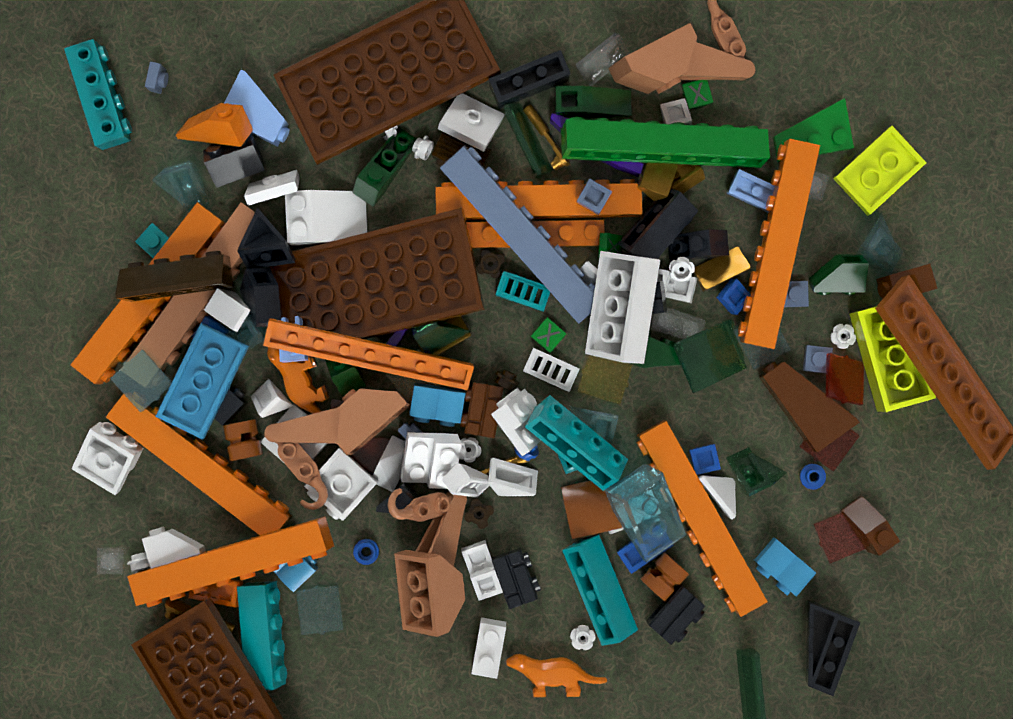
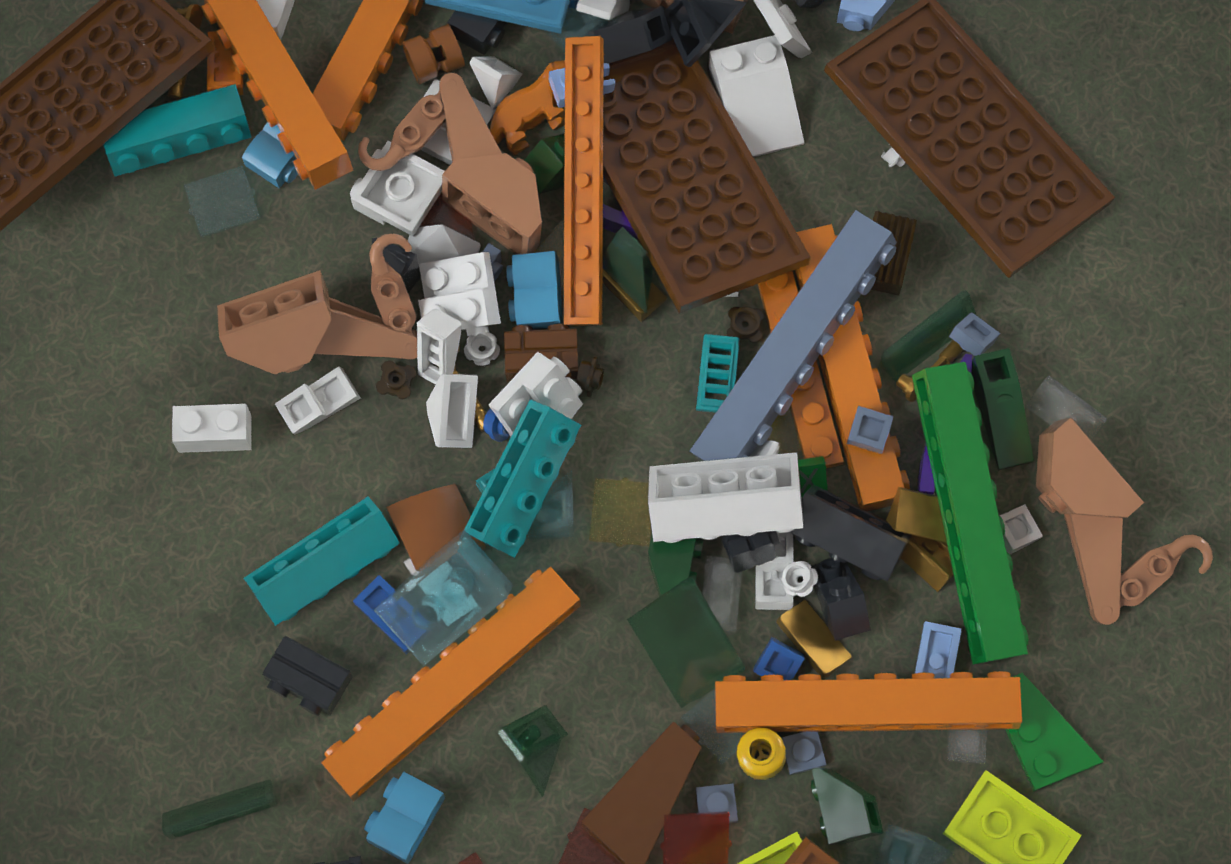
camera: 75 degrees right, 15 degrees down
(366, 560) = (309, 234): blue plate -> none
(384, 167) = (842, 157): dark green slope -> none
(421, 146) = (883, 198): white plate -> none
(471, 121) = (933, 254): white plate -> none
(515, 577) = (316, 445): black brick -> none
(529, 79) = (1012, 315): black brick -> none
(532, 360) = (622, 403): white slope -> none
(537, 107) = (974, 335): none -> sand blue plate
(548, 335) = (664, 422): green tile -> none
(552, 673) = (191, 524): orange animal -> none
(585, 644) = (252, 546): white plate -> none
(664, 576) = (359, 648): dark orange wheel -> none
(697, 94) = (1053, 553): green tile -> none
(704, 459) = (536, 671): blue plate -> none
(722, 491) = (495, 705): white slope -> none
(803, 324) = (756, 741): none -> yellow head
(805, 473) = (553, 841): blue plate -> none
(841, 329) = (754, 824): white plate -> none

